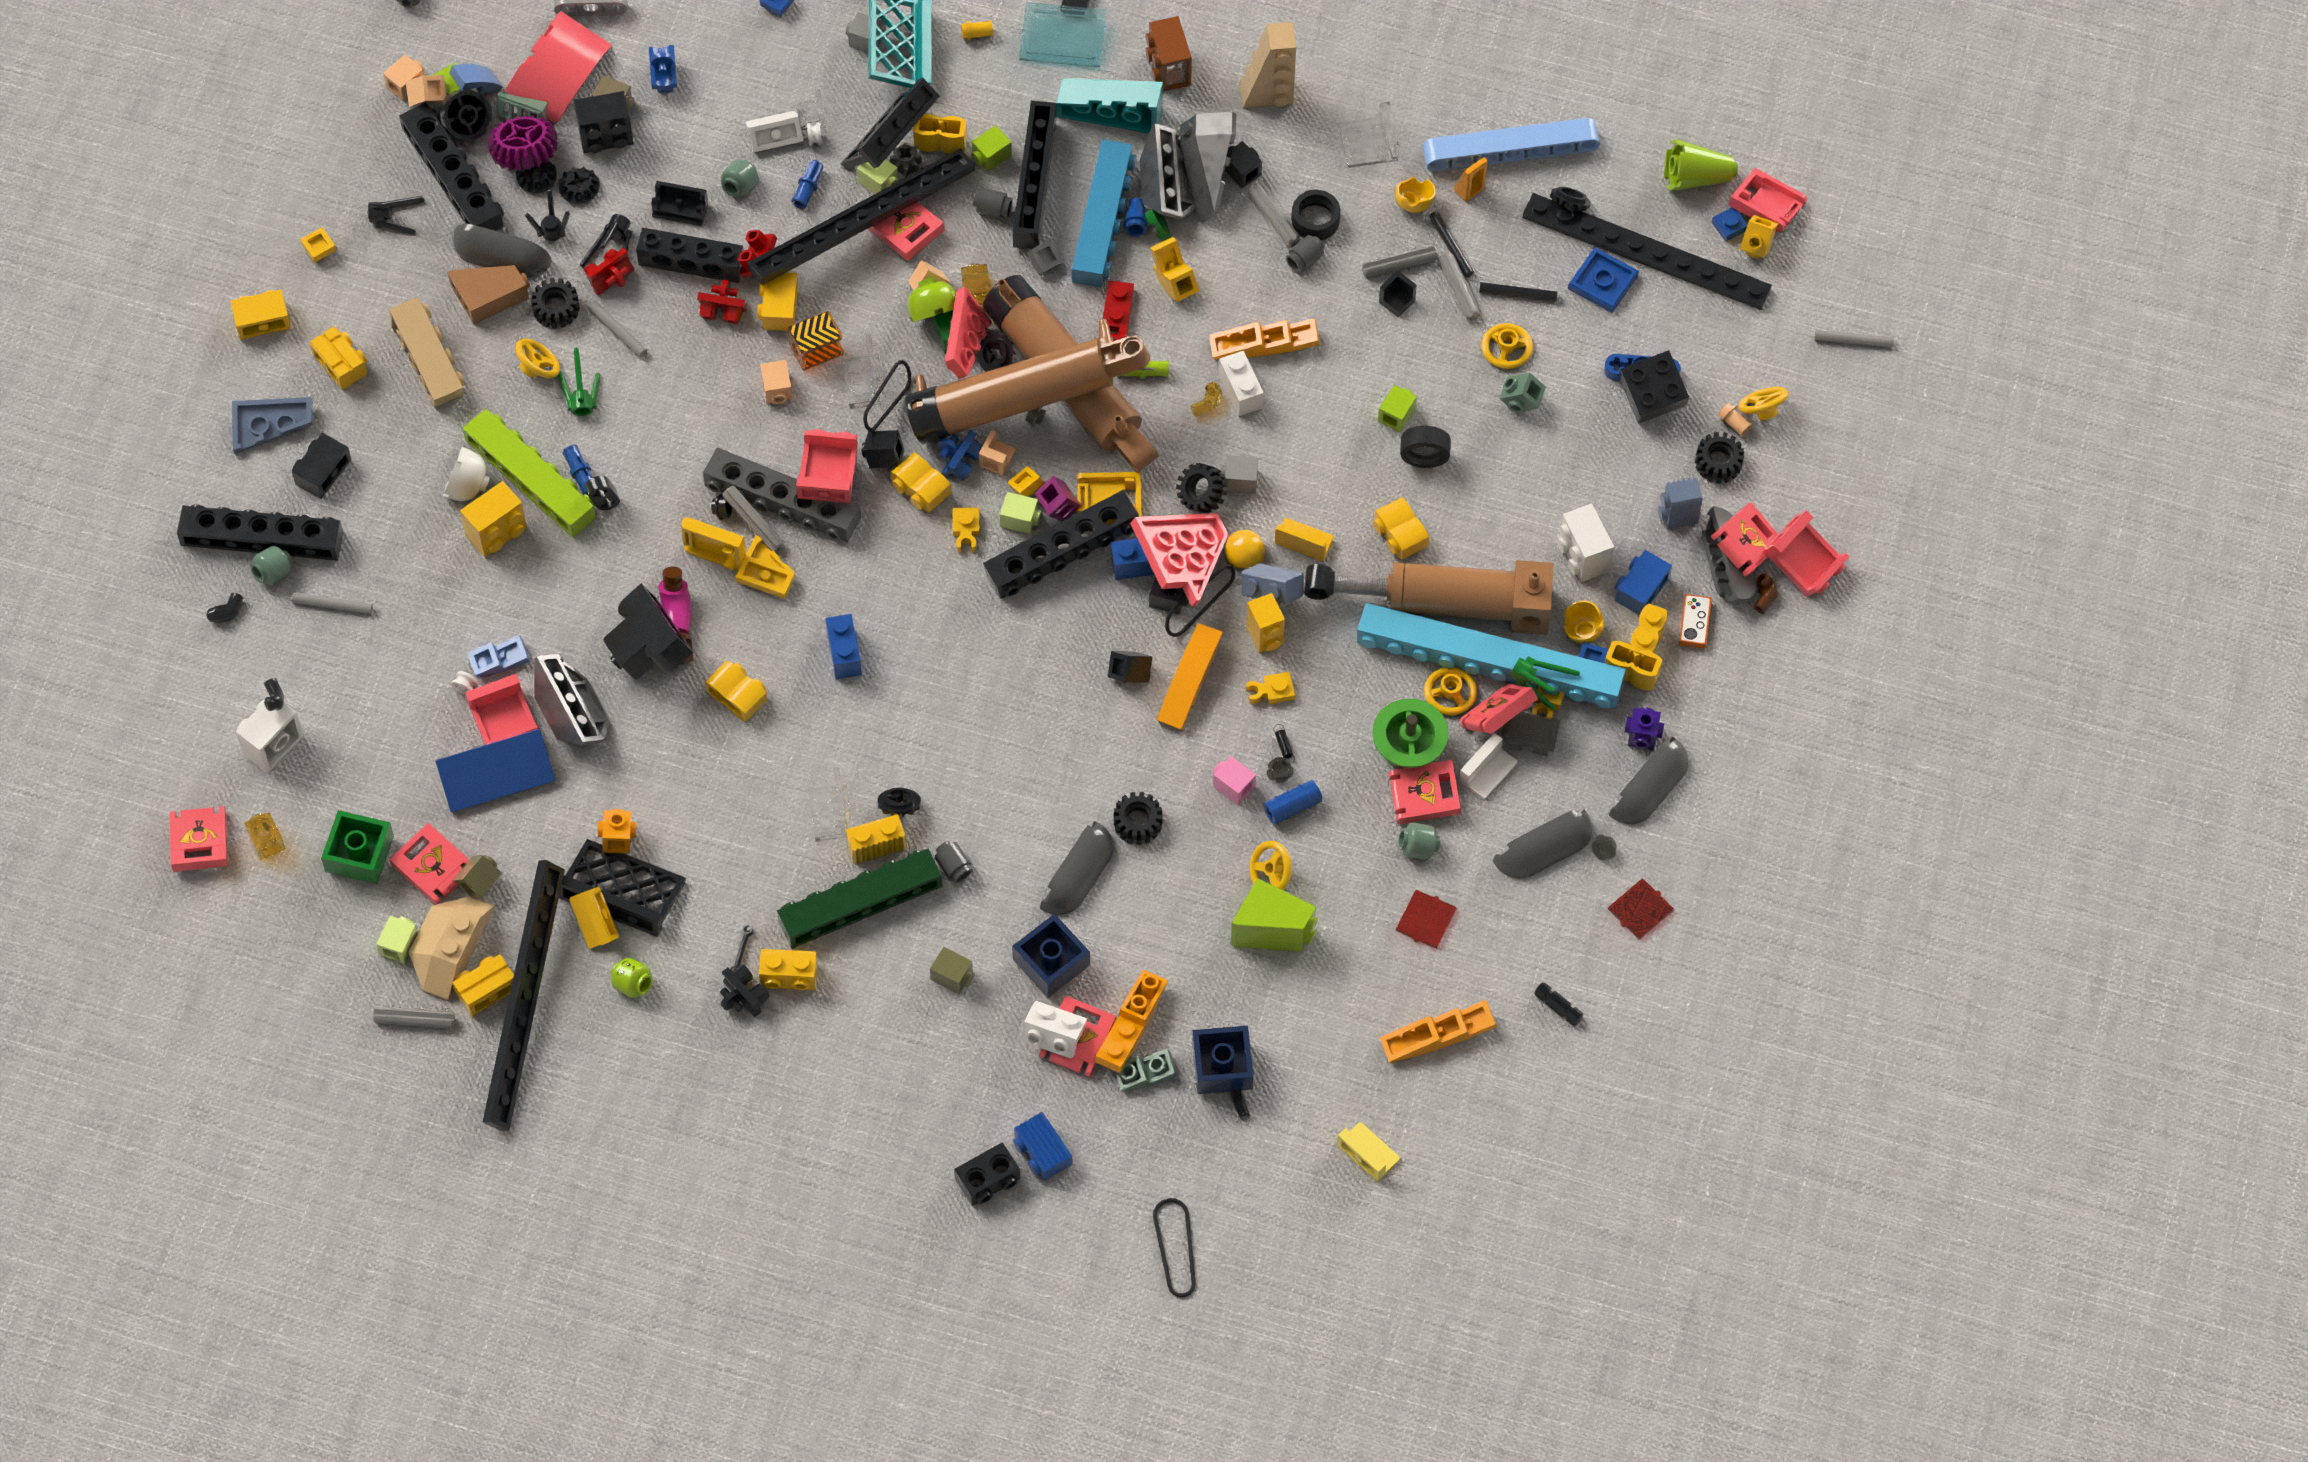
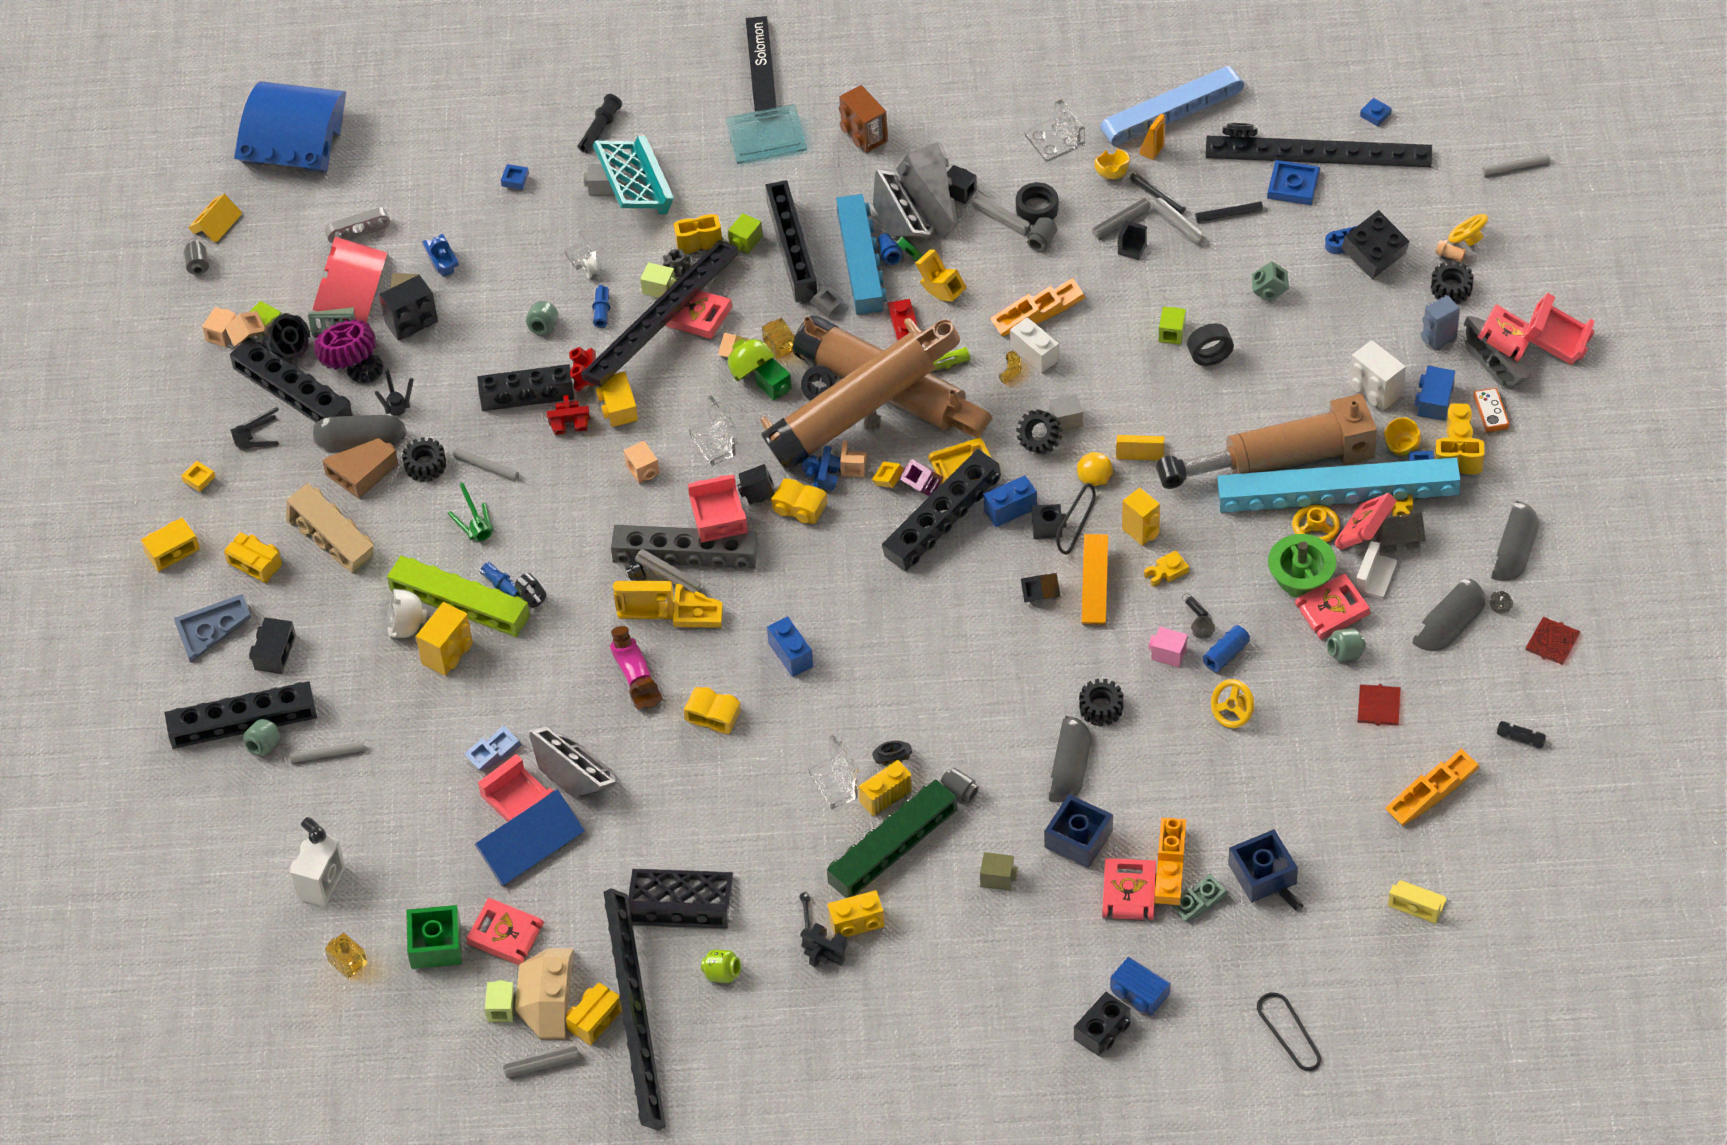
camera: 15 degrees left, 10 degrees down
(198, 831) = (283, 971): coral container -> none
(227, 611) = (234, 788): black arm -> none
(464, 682) = (471, 777): white bush -> none
(475, 76) = (281, 305): medium blue slope -> none
(477, 876) = (550, 927): olive brick -> none
(533, 362) = (427, 506): yellow piece -> none
(571, 192) = (403, 372): black gear -> none
(594, 917) = (667, 927): yellow panel -> none
(610, 272) = (463, 419): red hips -> none
(614, 230) = (452, 388): black plant -> none
(617, 831) = (658, 852): light orange brick -> none
(645, 636) = (618, 688): black brick -> none
(679, 203) = (498, 351): black hinge -> none
(774, 131) = (556, 274): white panel -> none
(815, 340) = (660, 420): piece -> none
(880, 390) = (736, 439): black piece -> none
(893, 126) = (656, 237): black fence -> none
(966, 331) = (791, 371): coral wing -> none
(966, 526) = (851, 524): yellow plate -> none
(976, 29) = (687, 152): yellow pin -> none
(992, 203) = (764, 273): dark grey brick -> none
(1019, 513) = (894, 499): yellowish green brick -> none
(1053, 1029) = (1108, 888): white bracket -> none
(1111, 102) = (832, 169): teal wedge -> none
(1182, 549) = (1047, 479): coral wing -> none
(1265, 579) = (1123, 484): sand blue brick -> none
(1272, 70) = (956, 100): tan wedge -> none
(1273, 920) = (1257, 741): lime slope -> none
(1401, 528) = (1218, 413): yellow brick -> none
(1503, 334) = (1238, 249): yellow piece -> none
(1524, 674) = (1375, 483): green plant -> none
(1644, 728) = (1491, 501): dark purple brick -> none
(1696, 166) = (1329, 76): lime cone -> none
(1758, 237) = (1405, 112): yellow brick -> none
(1767, 592) = (1539, 369): reddish brown arm -> none
(1772, 201) = (1401, 86): coral container -> none

